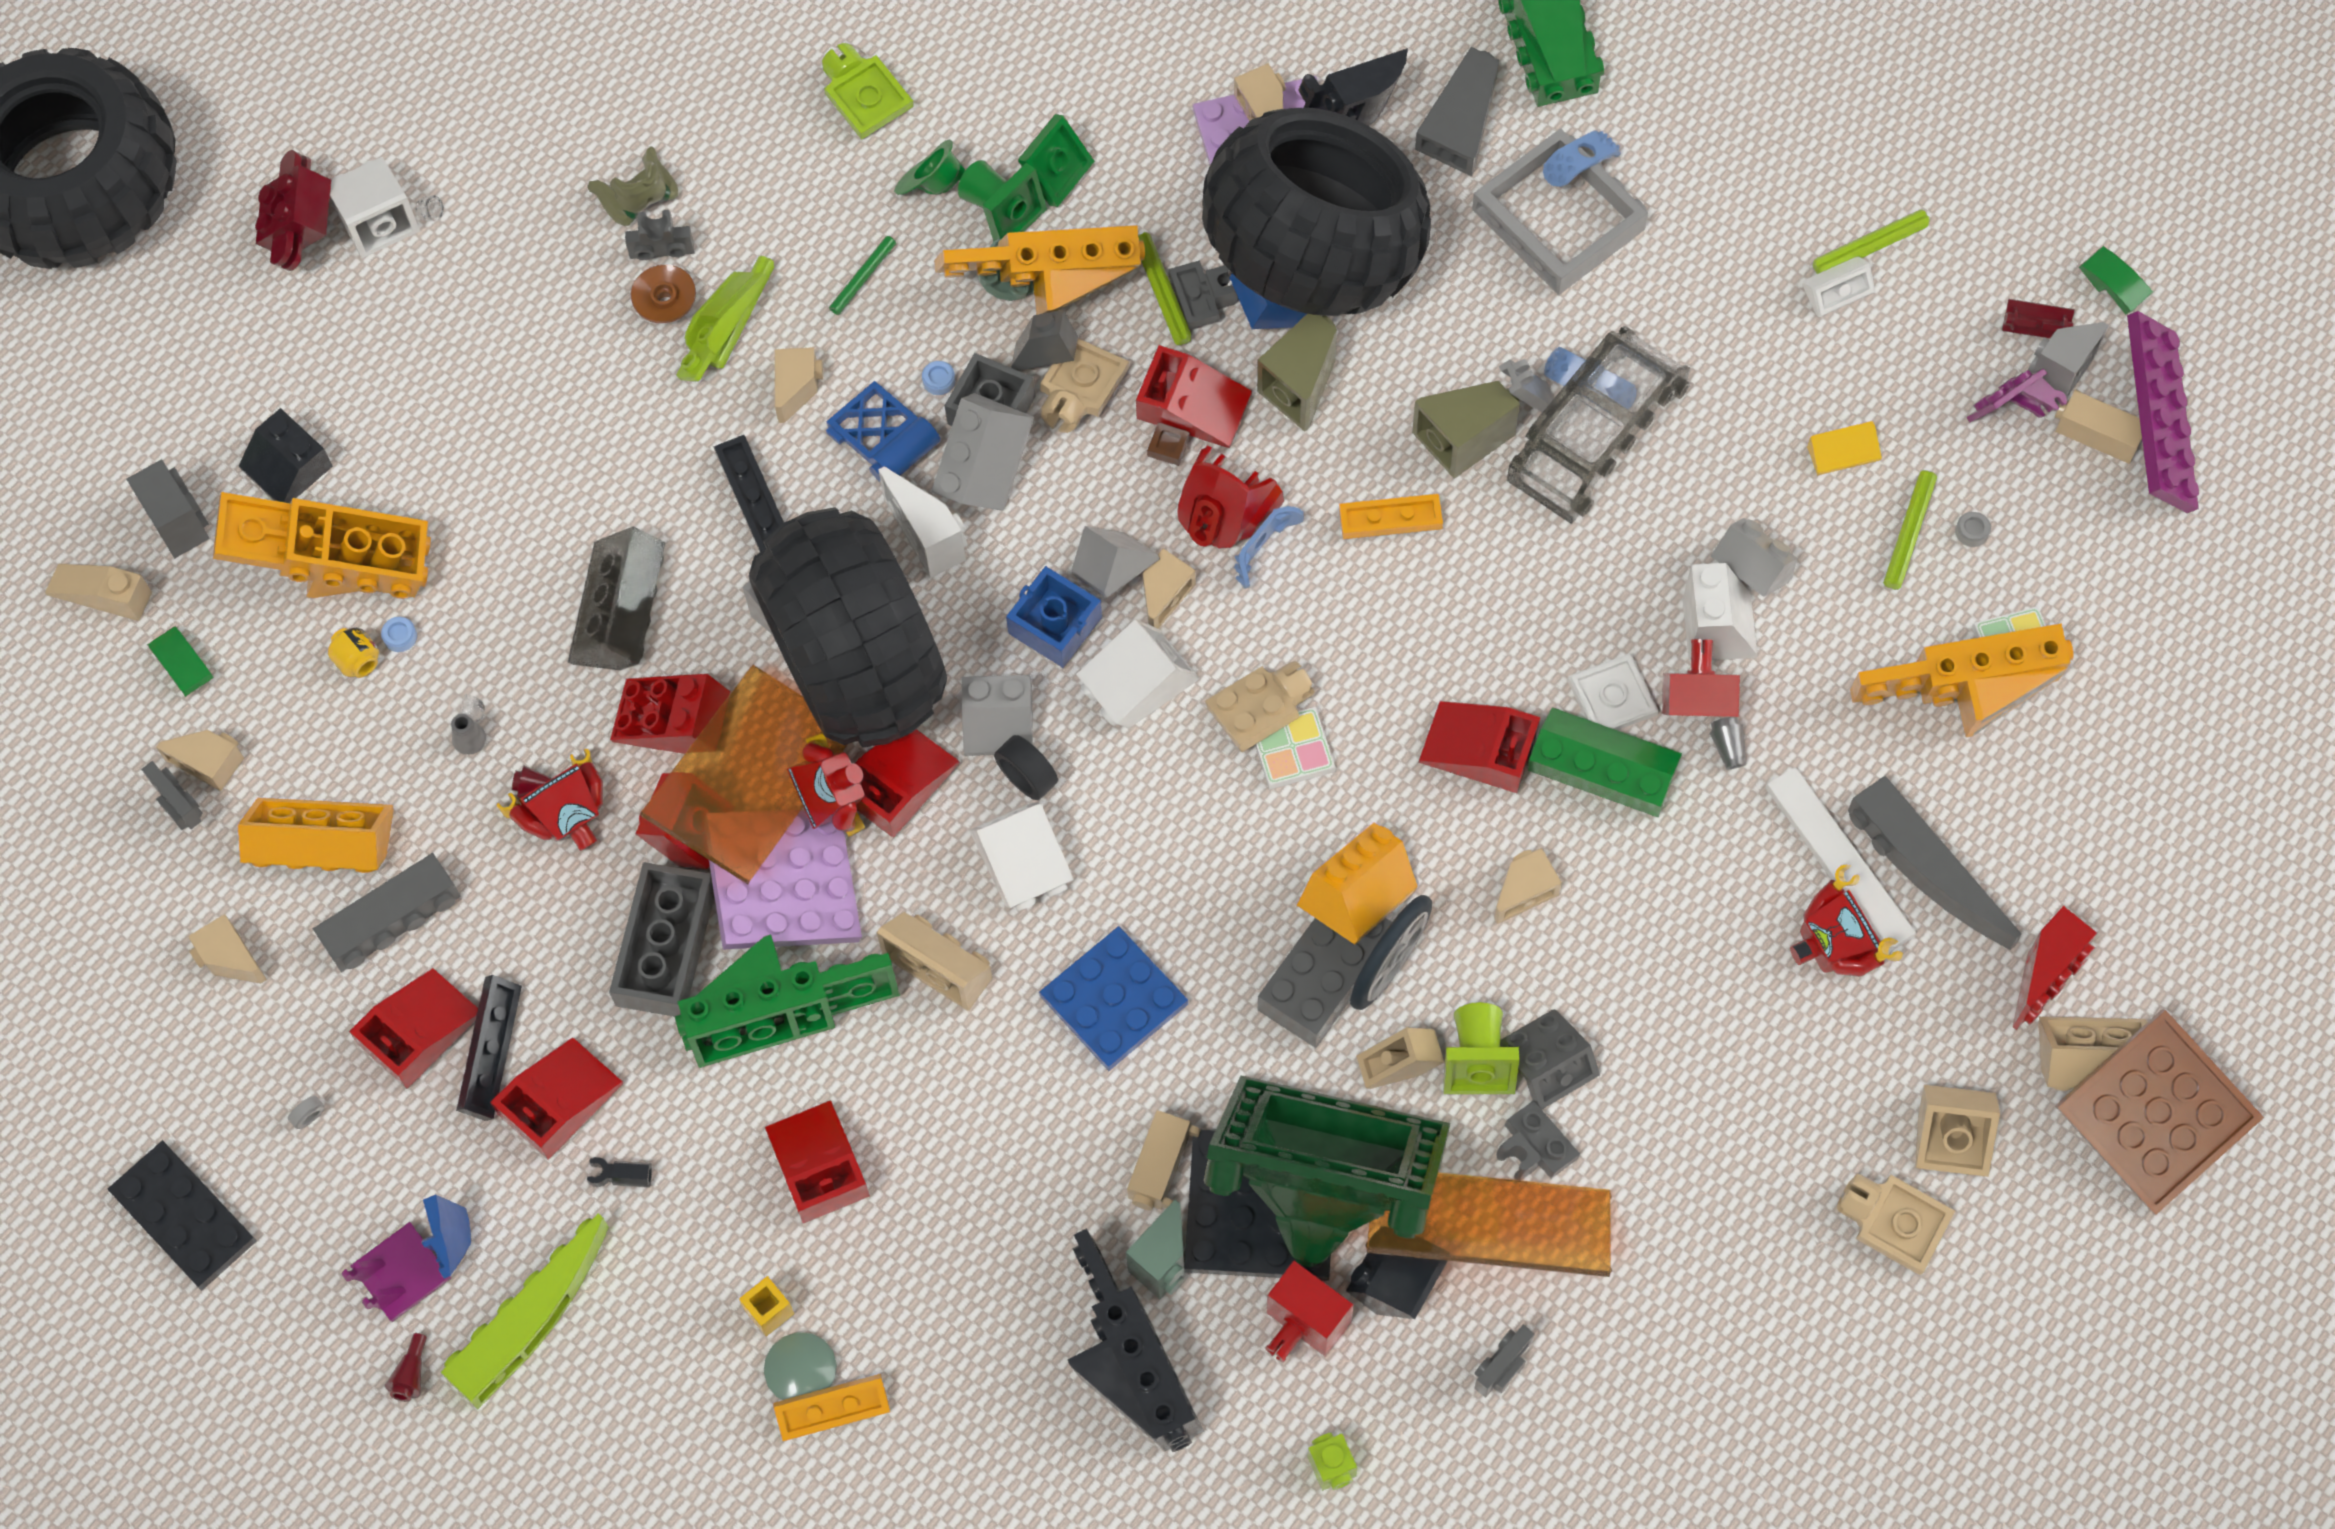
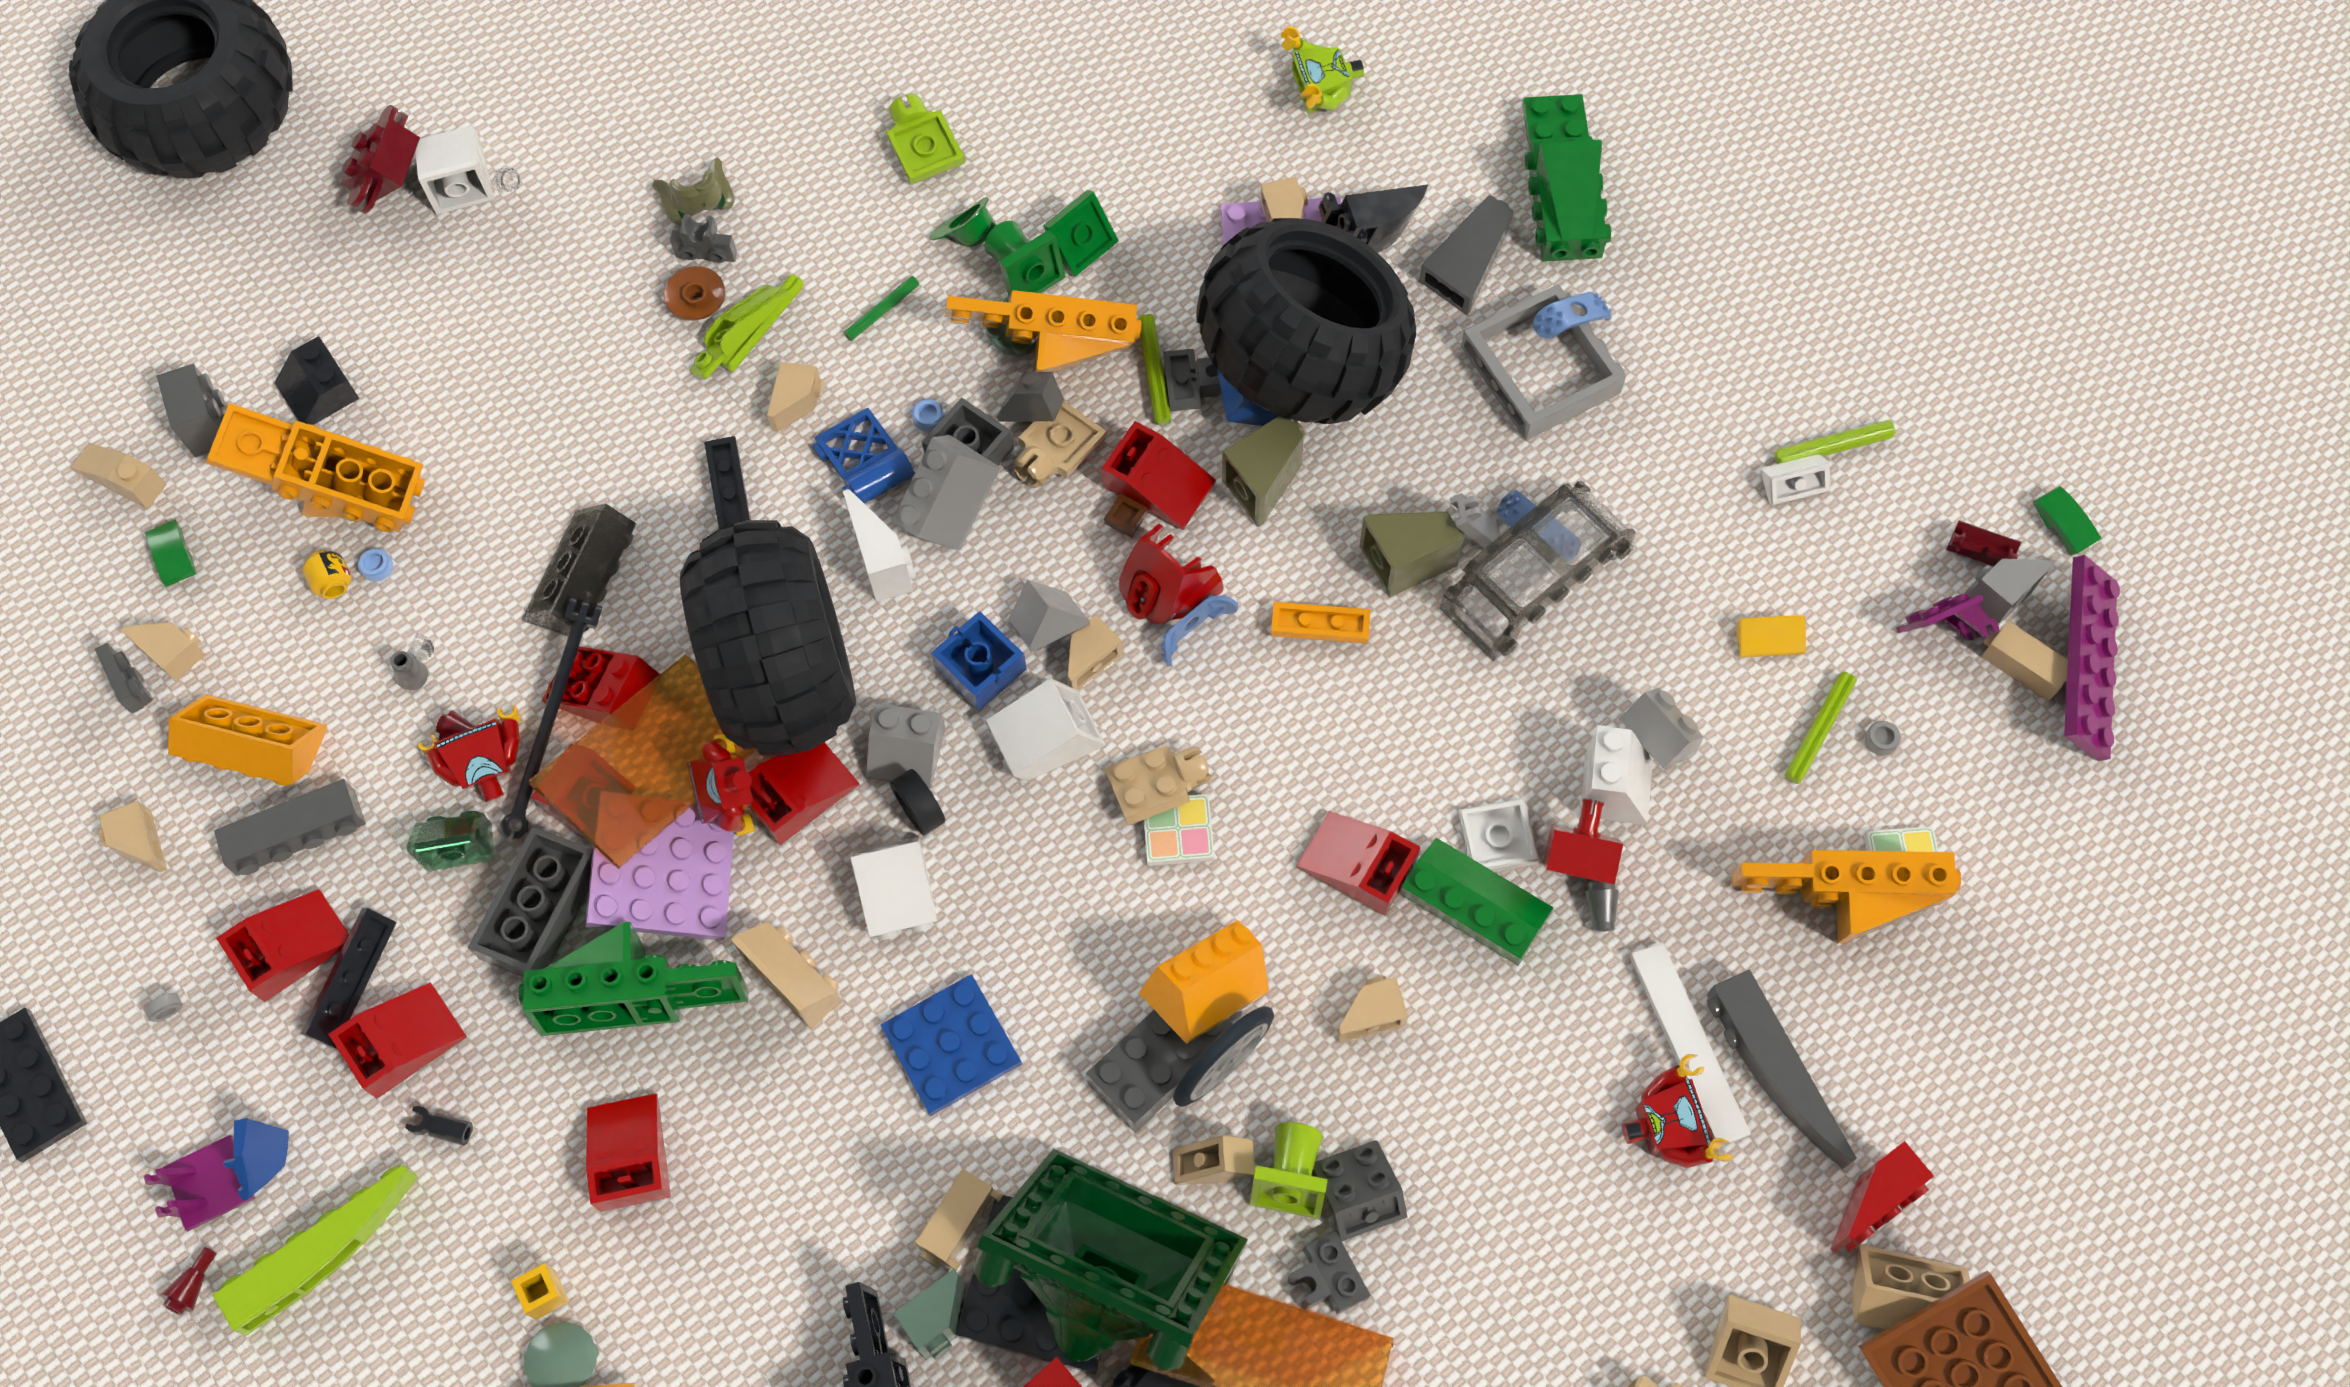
camera: 10 degrees right, 0 degrees up
(560, 894) = (452, 841): none -> clear green slope
(636, 651) = (550, 713): none -> black hinge

